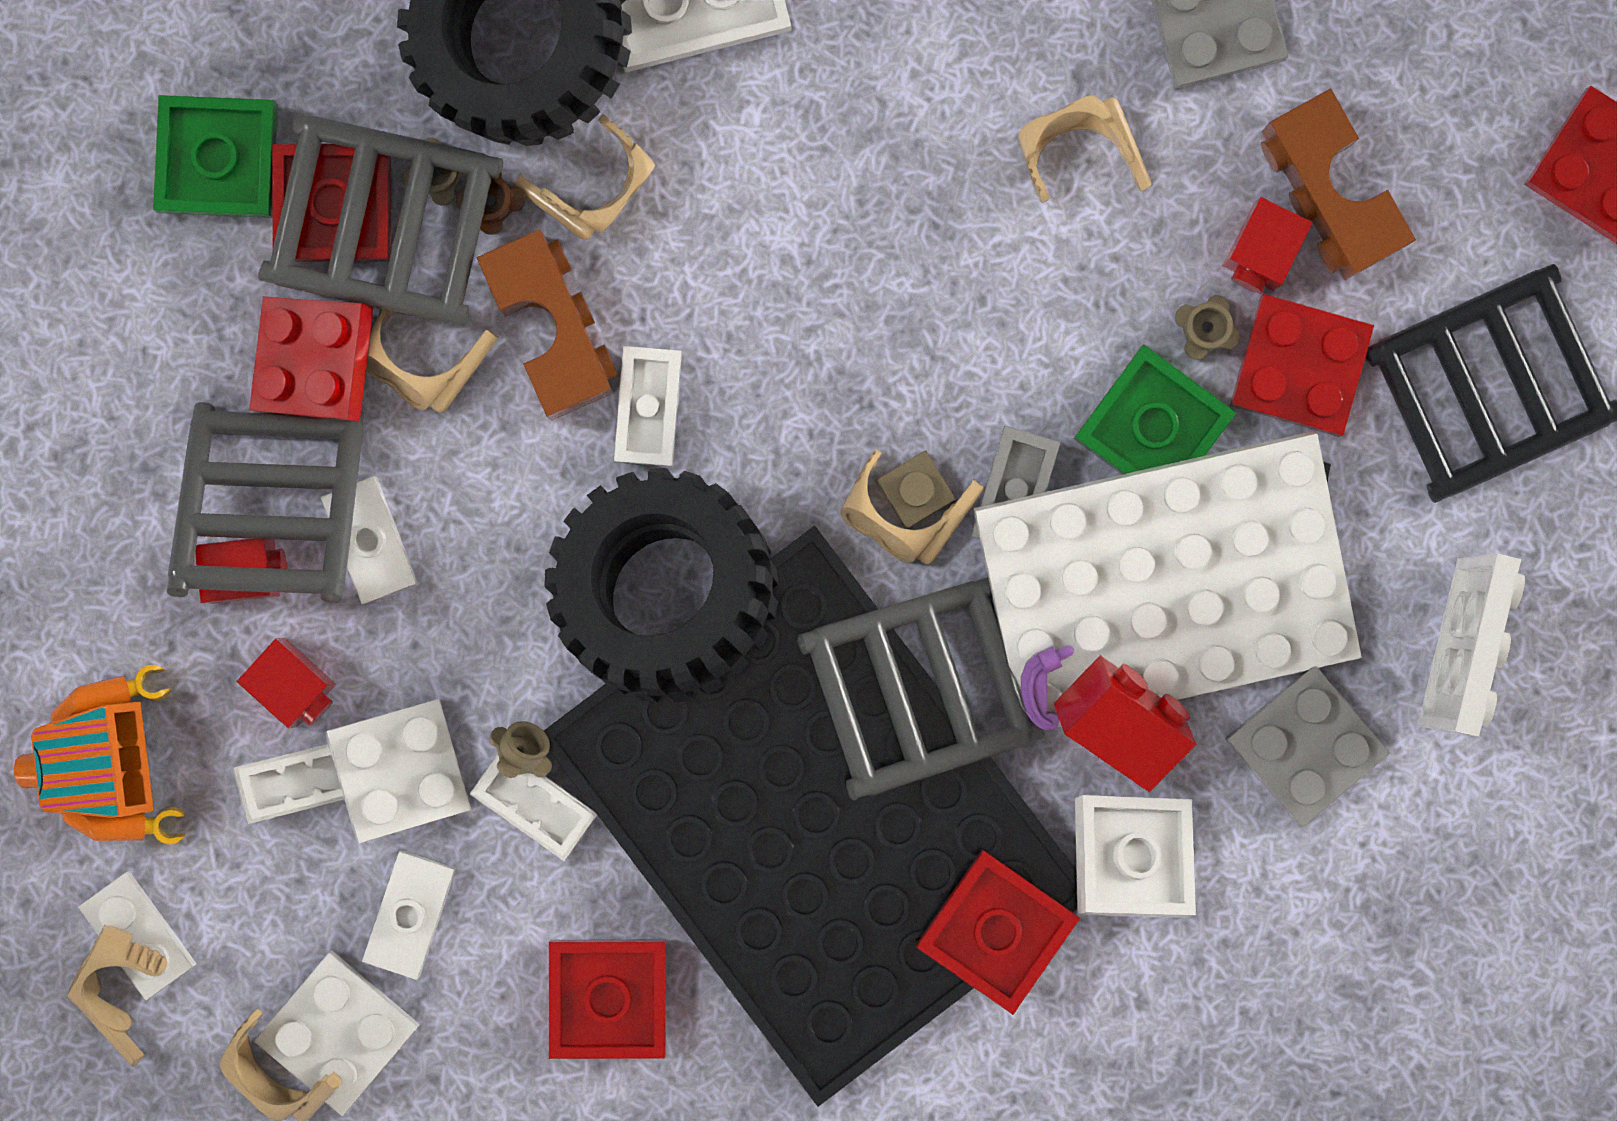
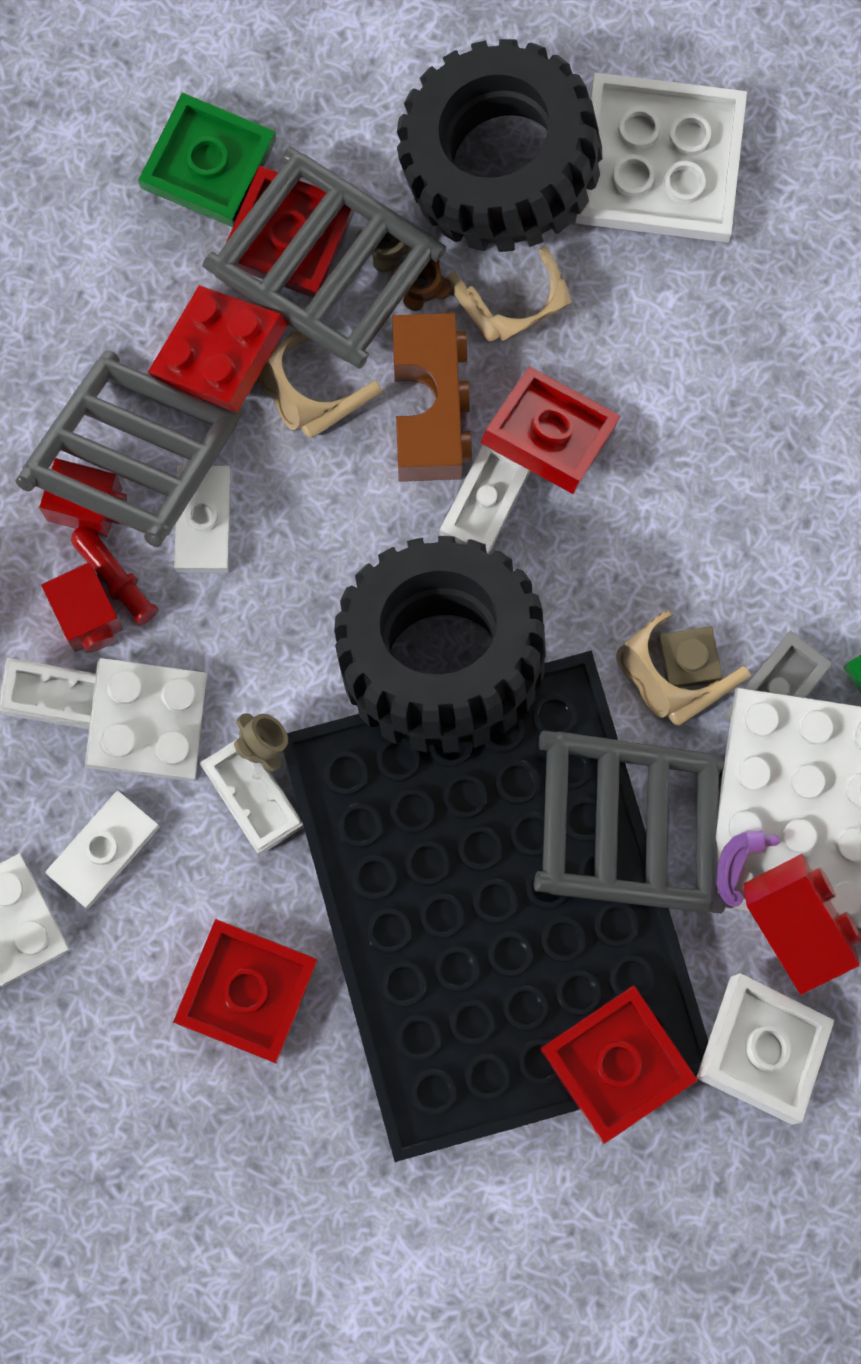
camera: 20 degrees right, 10 degrees down
(292, 628) = (107, 567): none -> red piece
(685, 312) = (550, 429): none -> red plate

